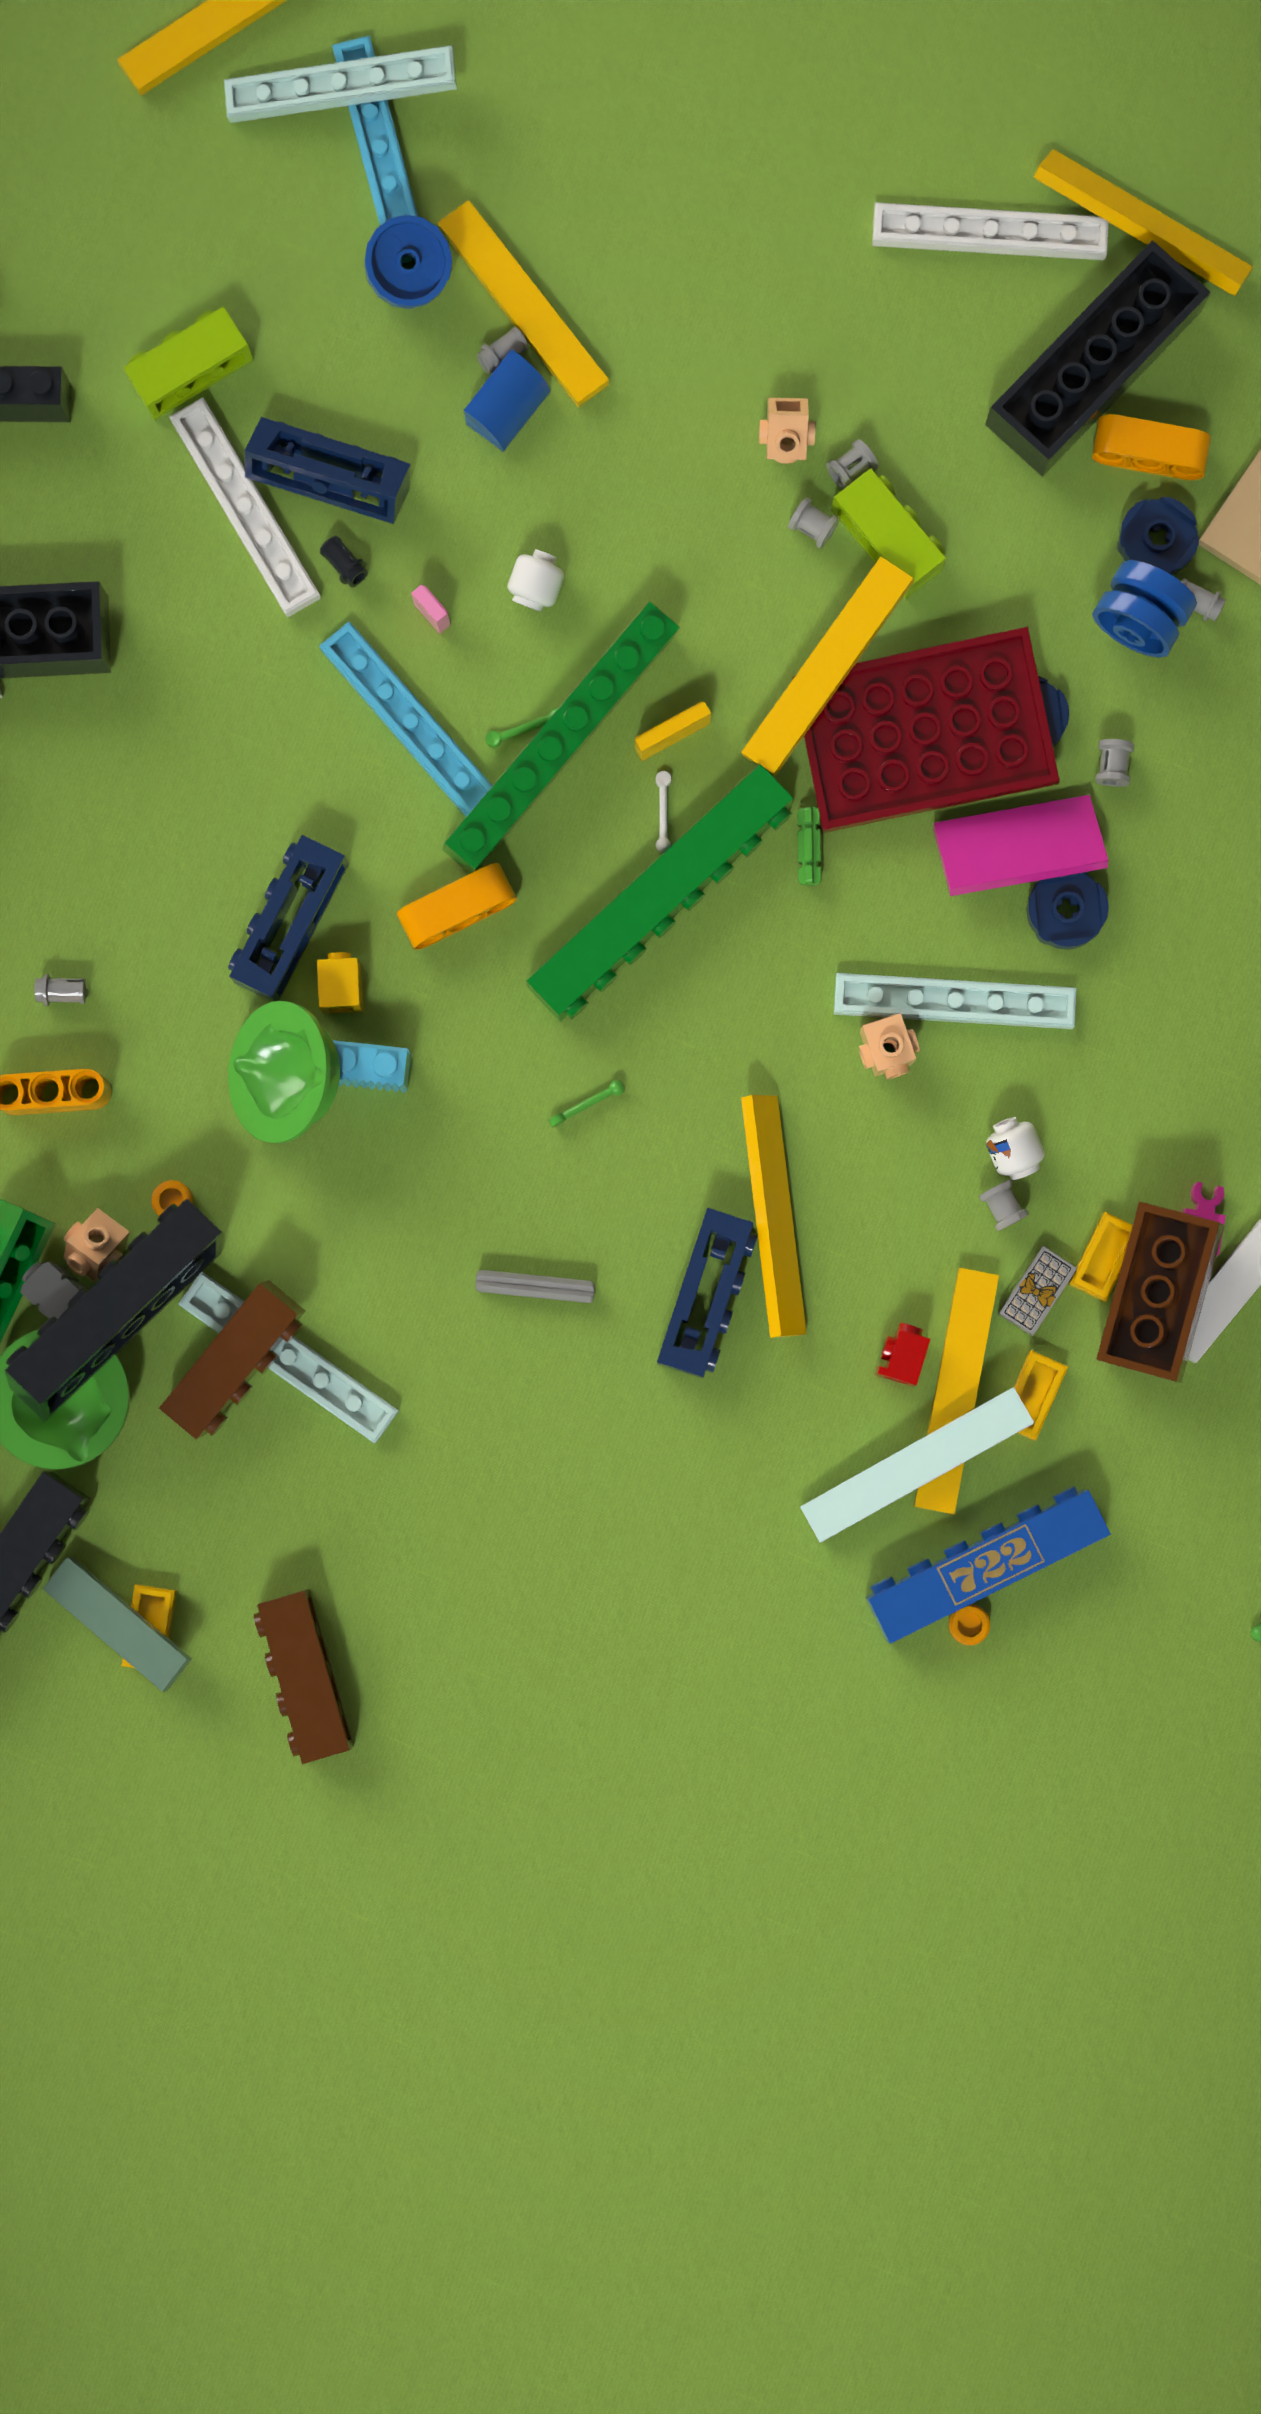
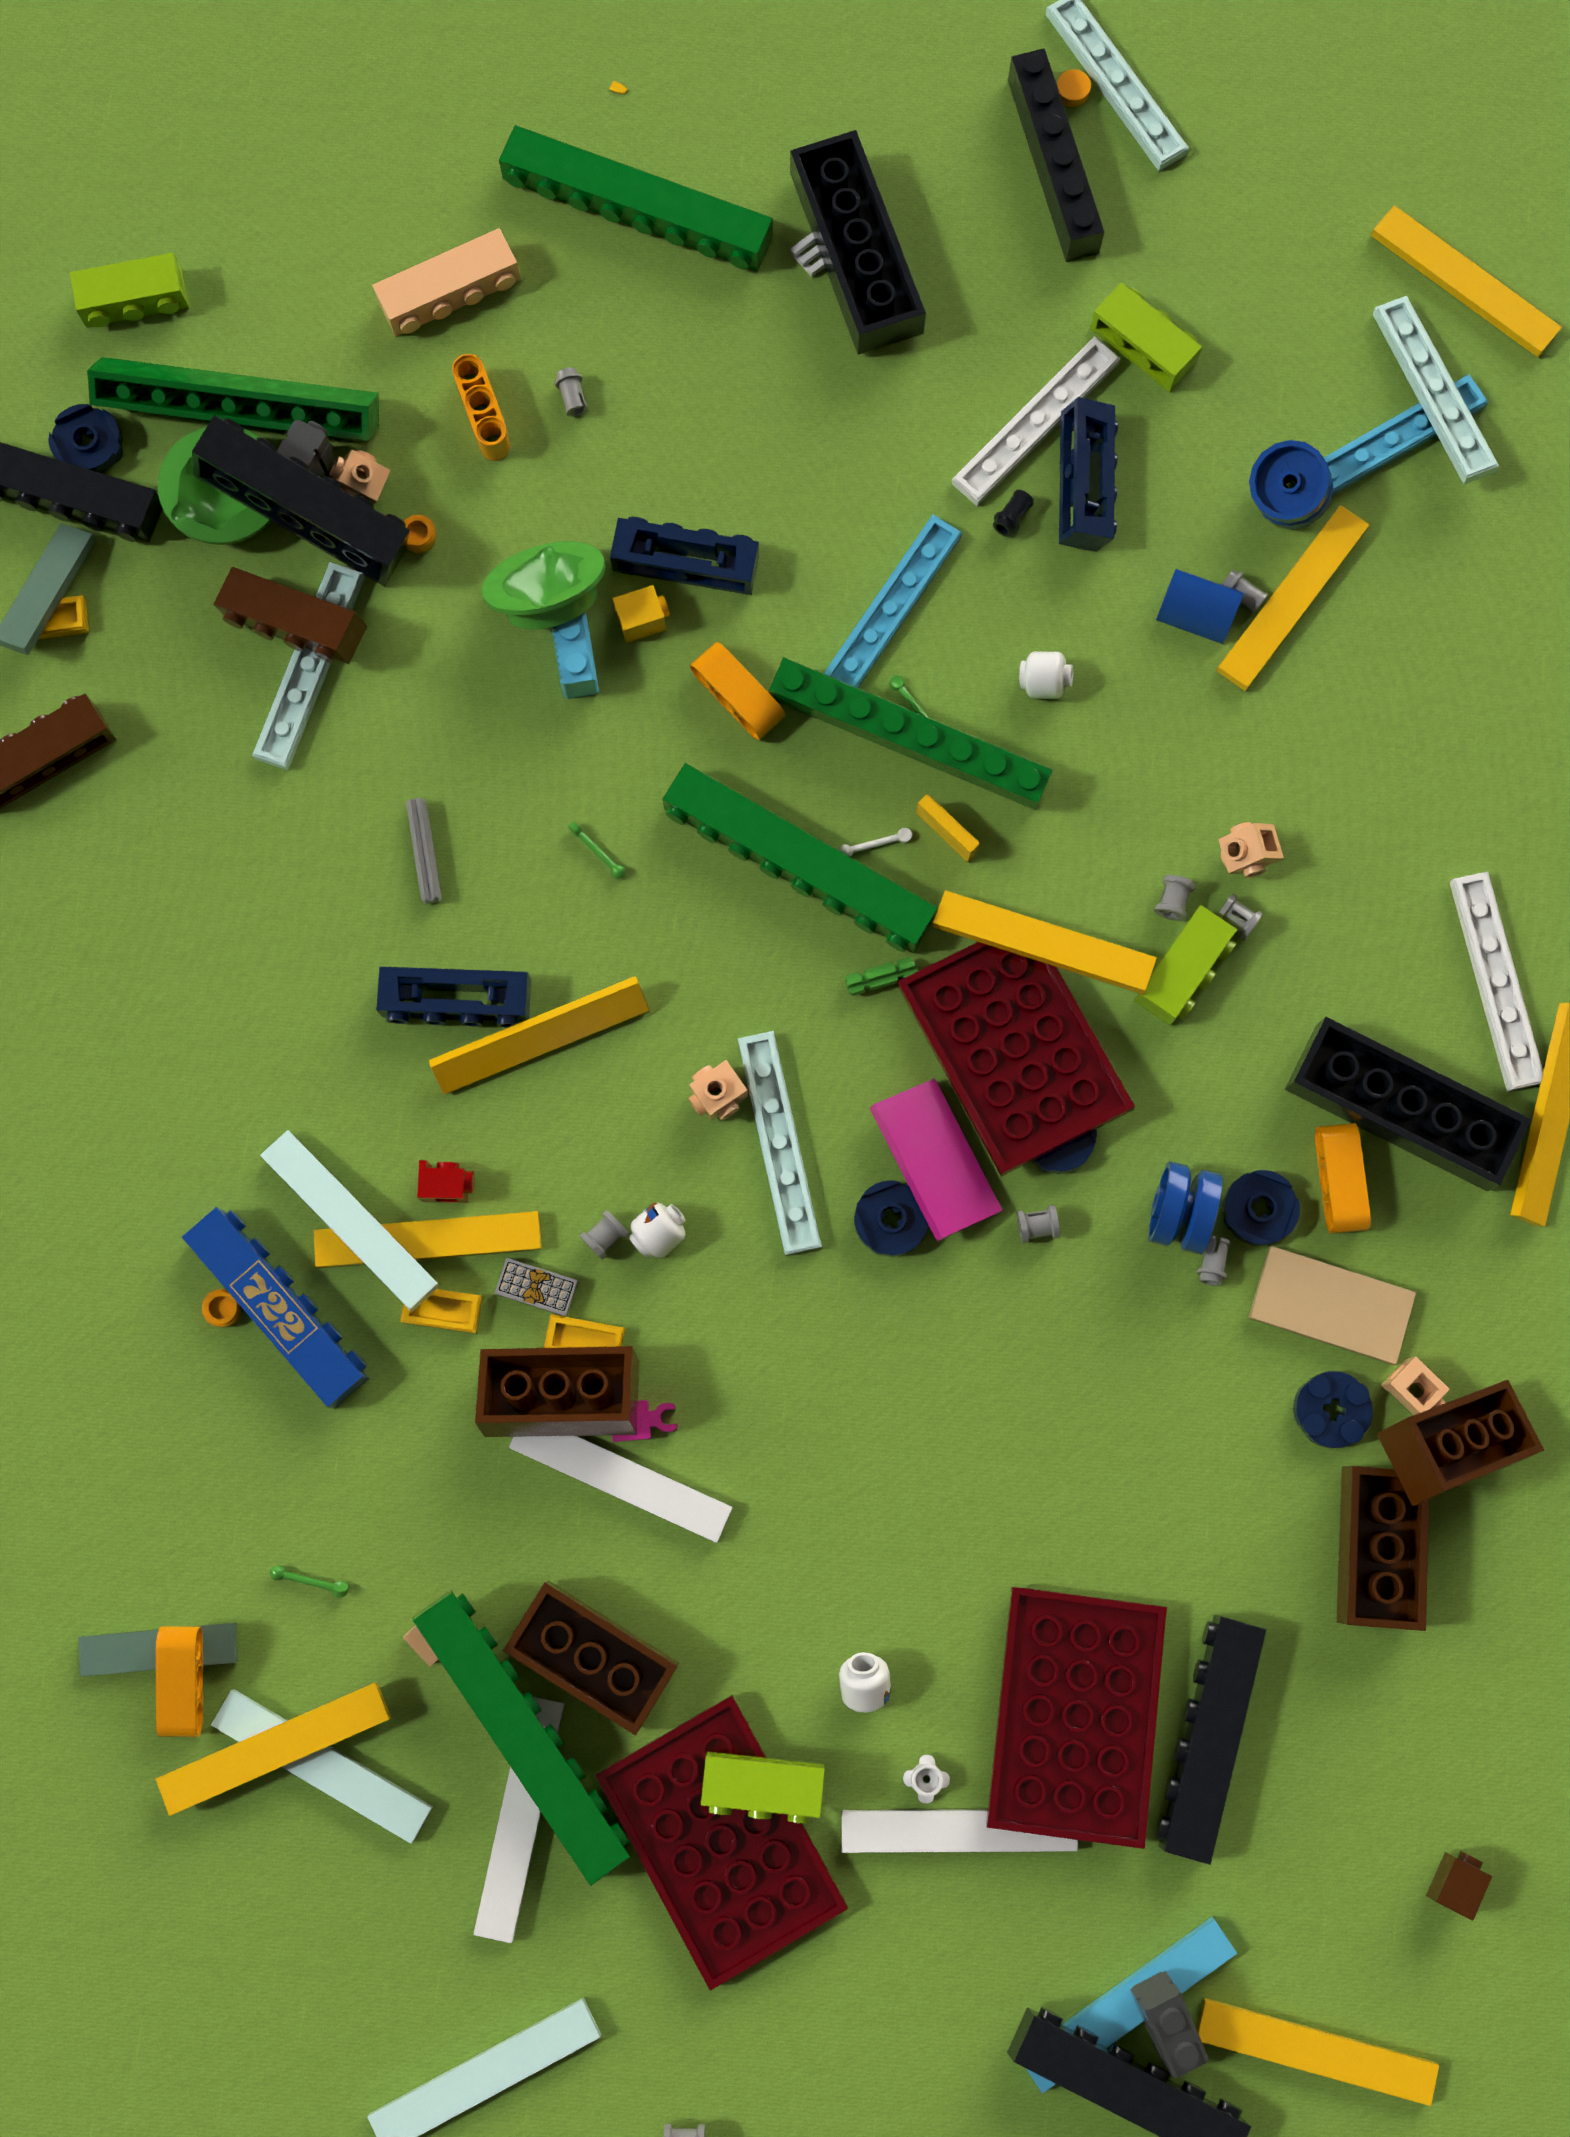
camera: 70 degrees right, 5 degrees down
(431, 608) = (993, 595): bright pink tile -> none

